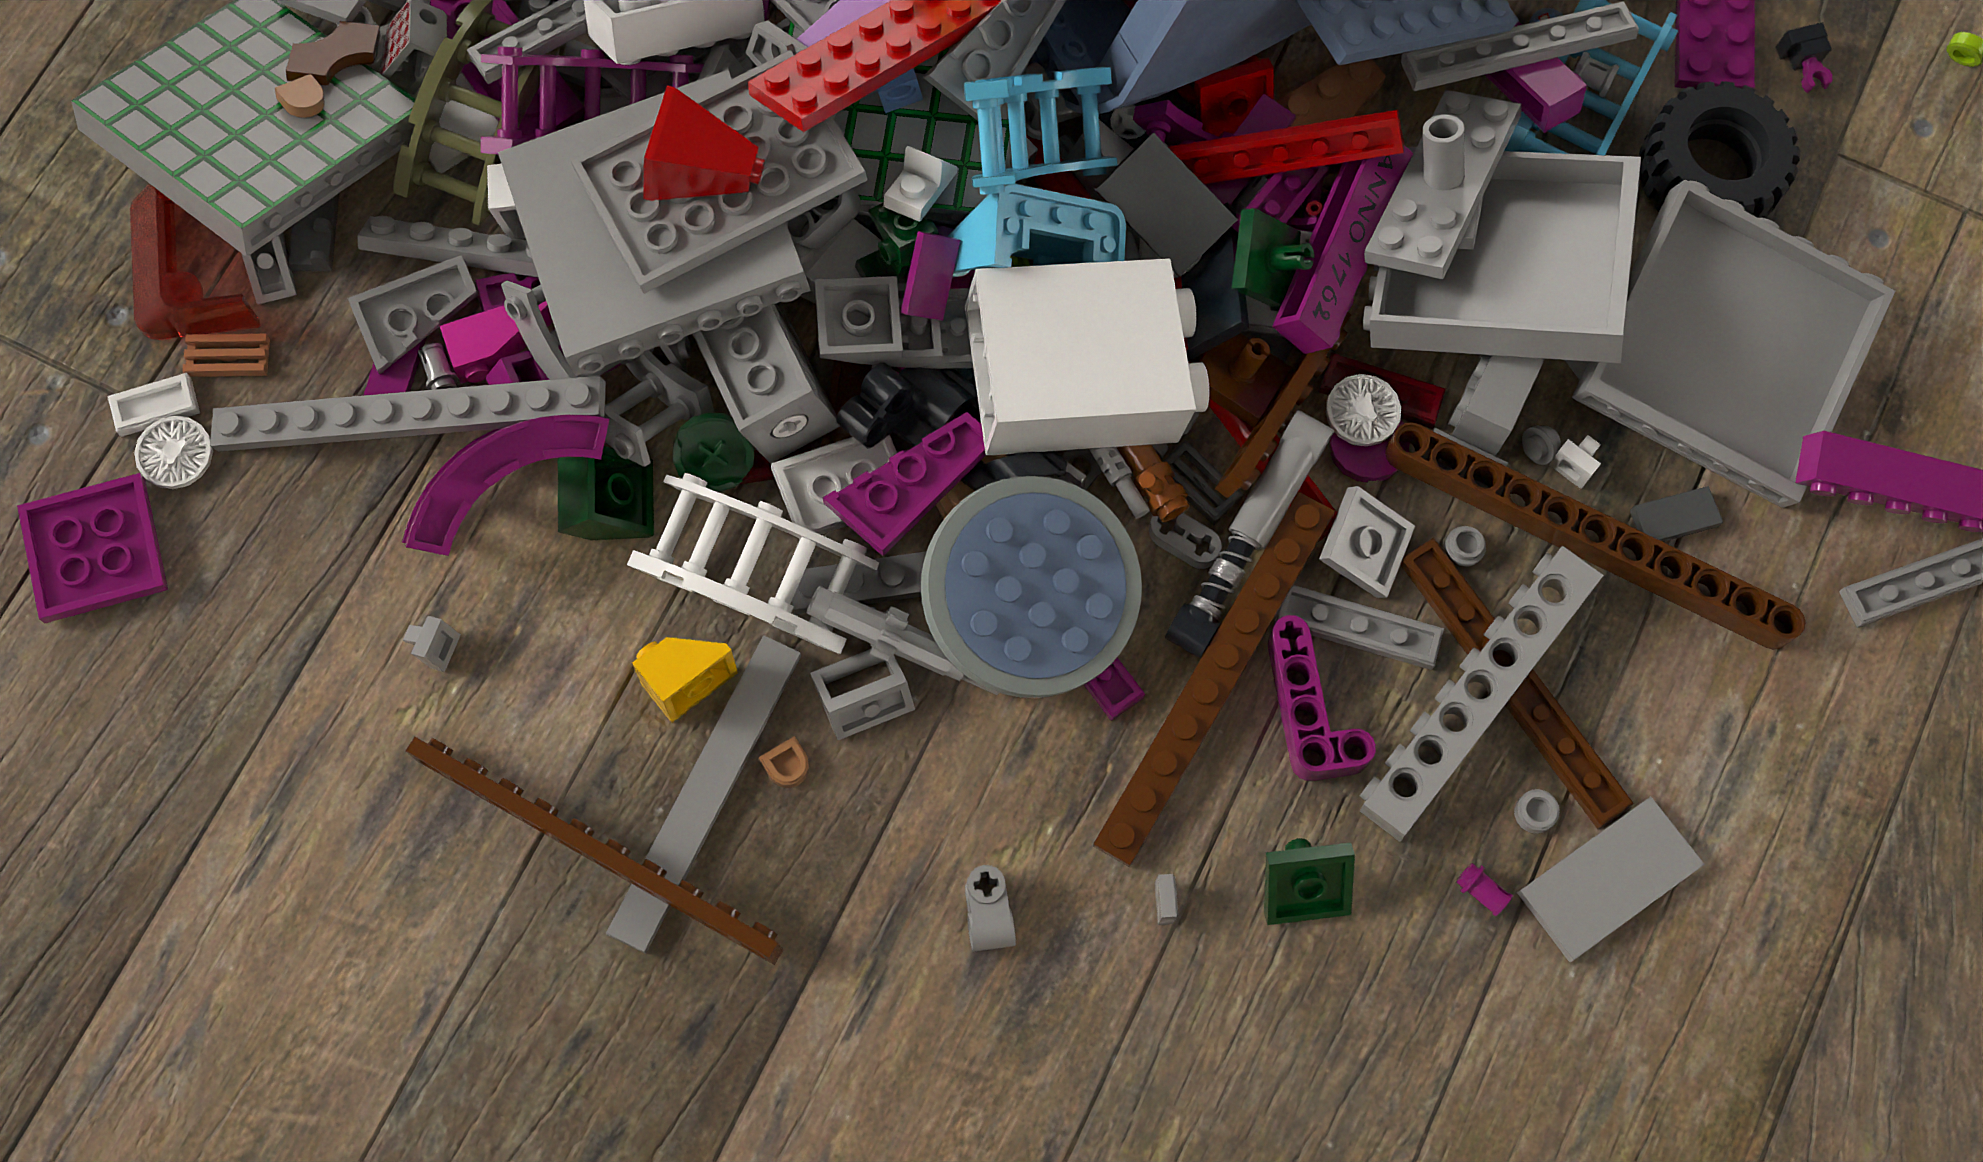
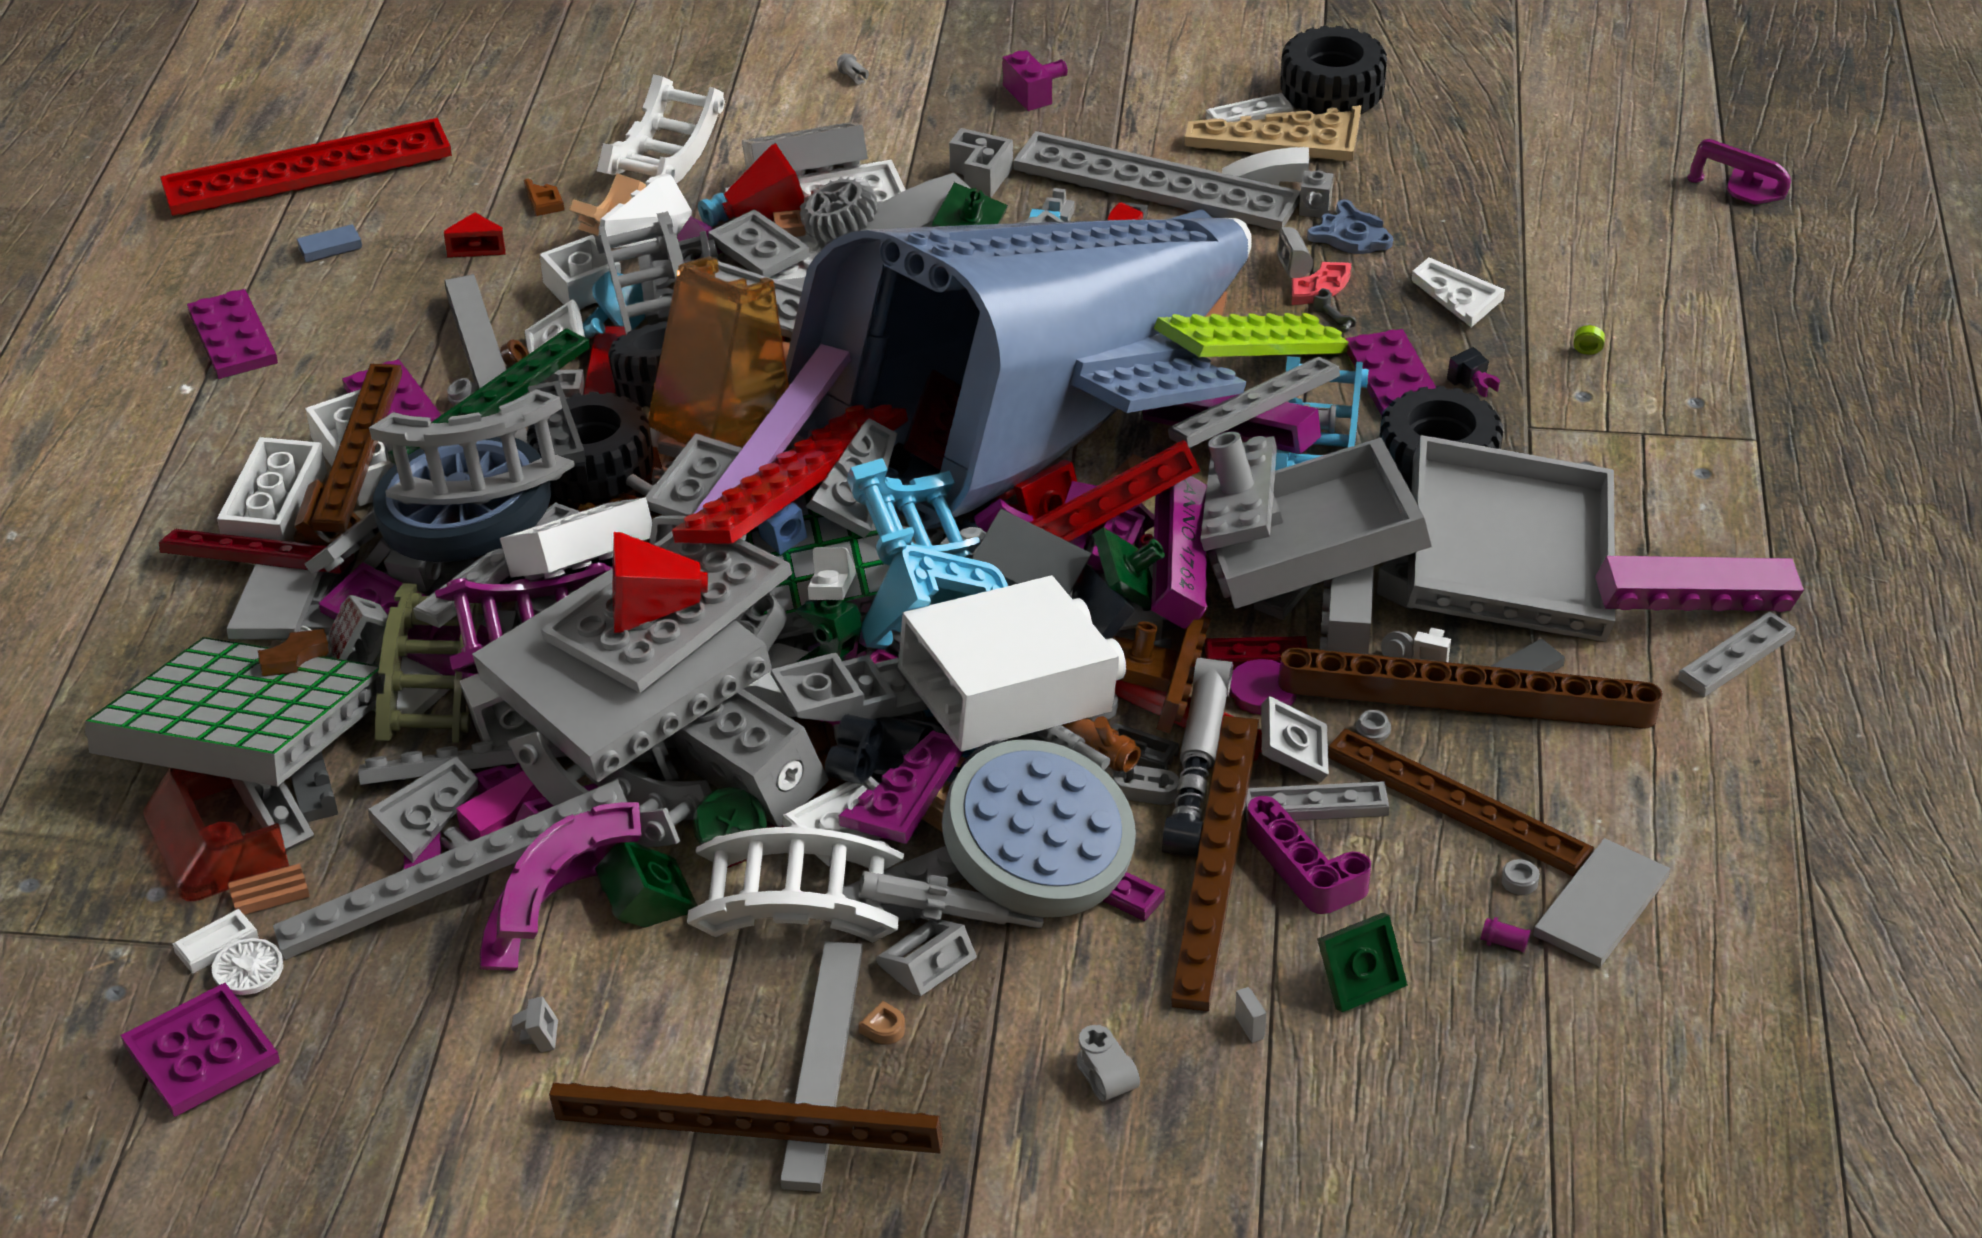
camera: 15 degrees left, 30 degrees down
(301, 97) = (280, 678): medium nougat tile -> none
(683, 672) = (770, 973): yellow slope -> none
(930, 275) = (865, 638): magenta tile -> none
(1363, 410) = (1252, 660): white wheel -> none
(1574, 582) = (1433, 807): light grey brick -> none

